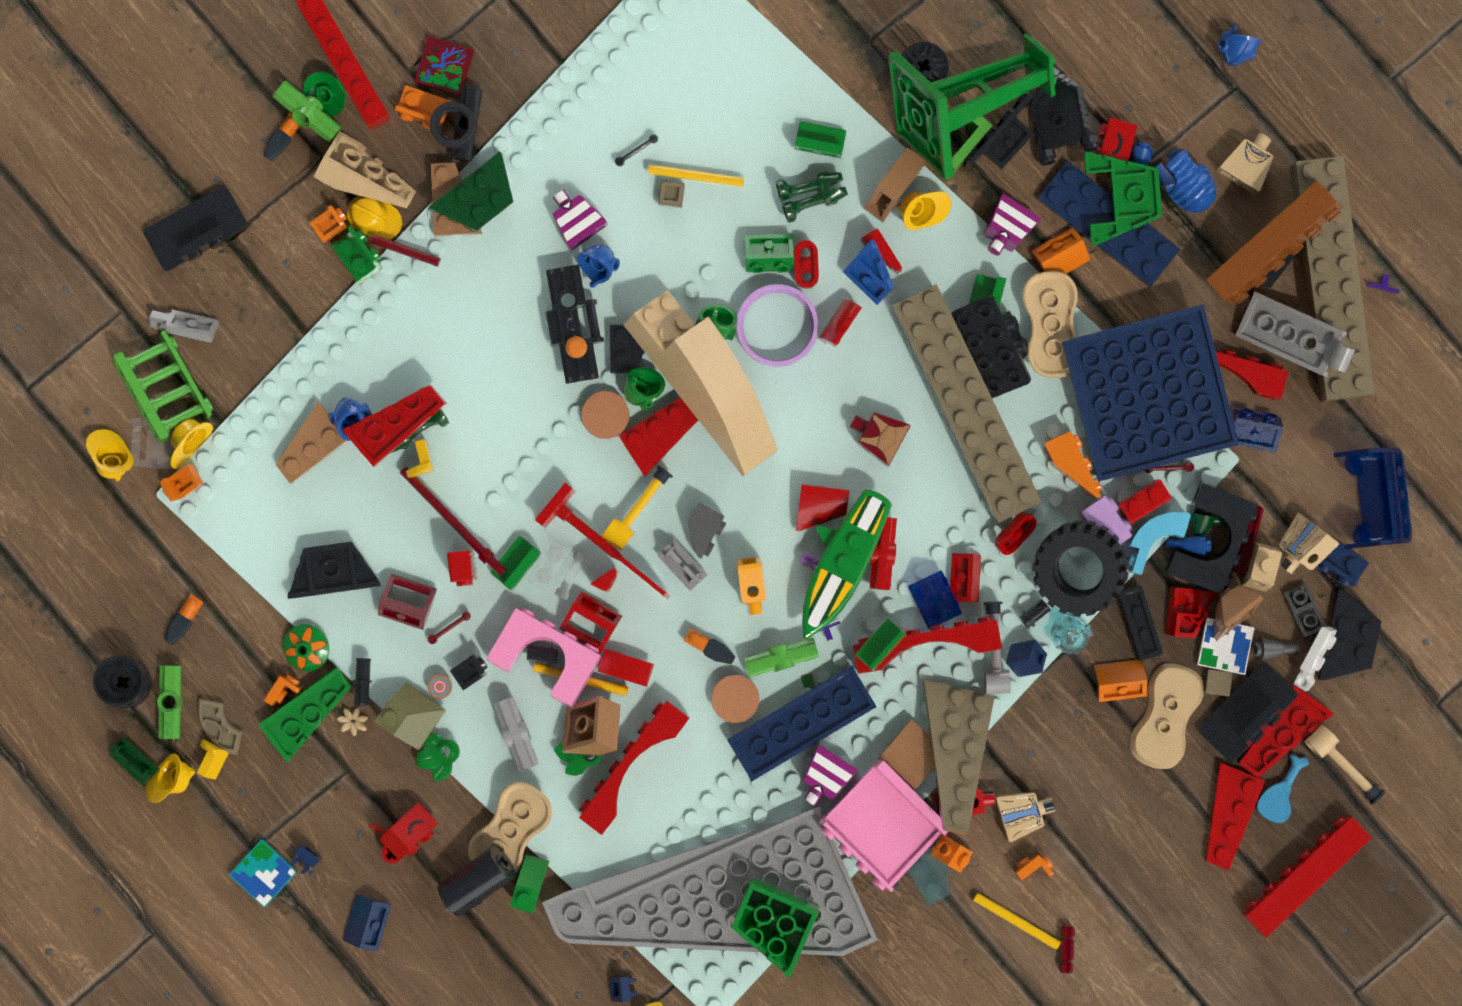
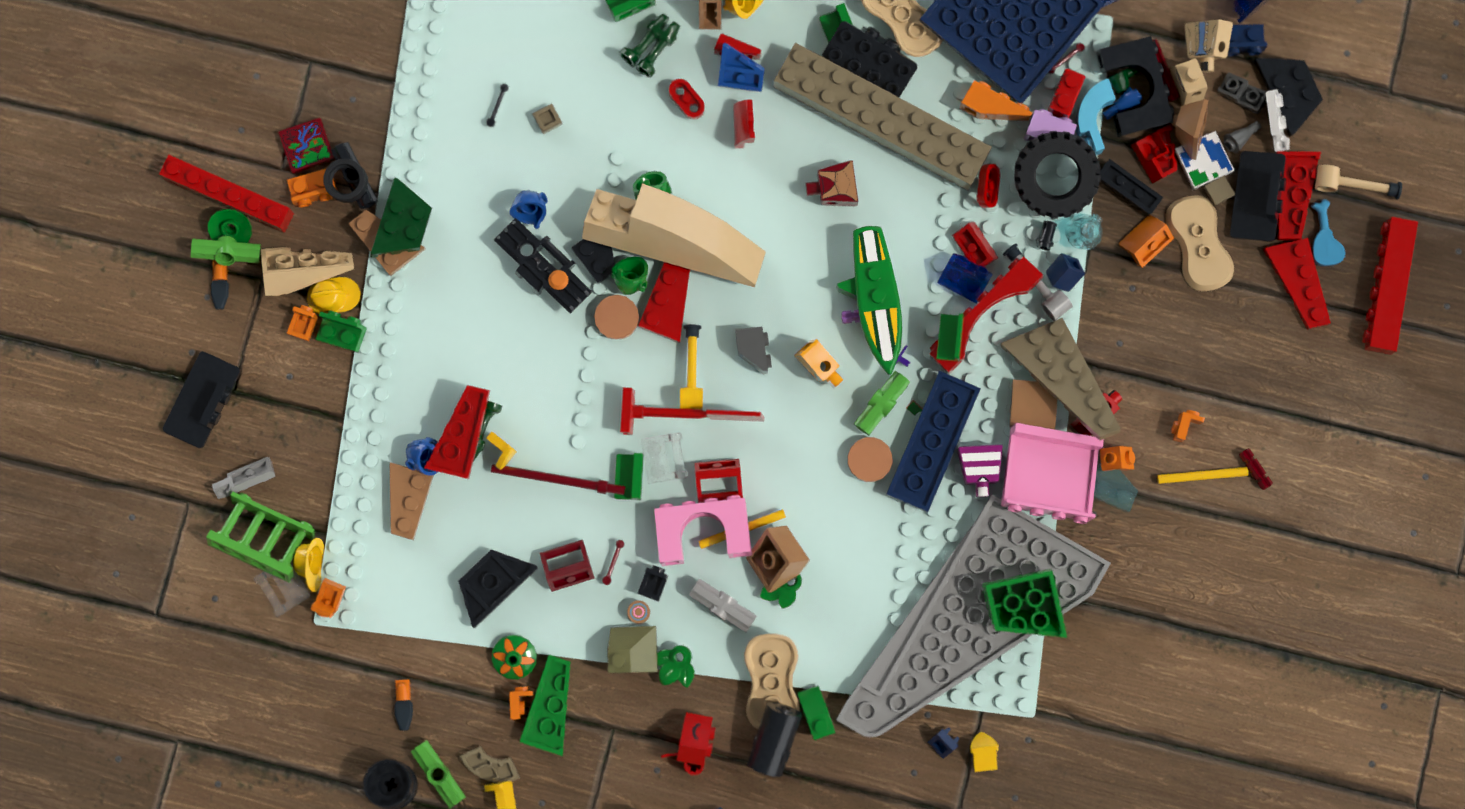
camera: 35 degrees left, 5 degrees down
(109, 454) = (256, 617): yellow piece -> none
(352, 721) = (590, 687): tan plant -> none
(362, 681) = (576, 650): black axle -> none
(405, 250) = (377, 301): dark red bar -> none
(462, 567) = (591, 507): red brick -> none
(542, 654) = (699, 530): black pin -> none
(577, 219) = (490, 186): torso -> none
(603, 807) = (830, 614): red arch -> none
(606, 581) = (708, 439): red slope -> none
(625, 667) = (770, 495): red slope -> none
(682, 565) = (756, 387): light grey hinge -> none
(696, 175) = (556, 92): yellow bar -> none
(710, 647) = (823, 434): black piece -> none
(769, 253) = (653, 110): green bracket -> none
(777, 288) = (698, 126): lavender piece -> none
(820, 505) = (828, 269): red slope -> none
(884, 557) = (904, 274): red piece -> none
(1022, 813) = (1147, 391): tan torso -> none

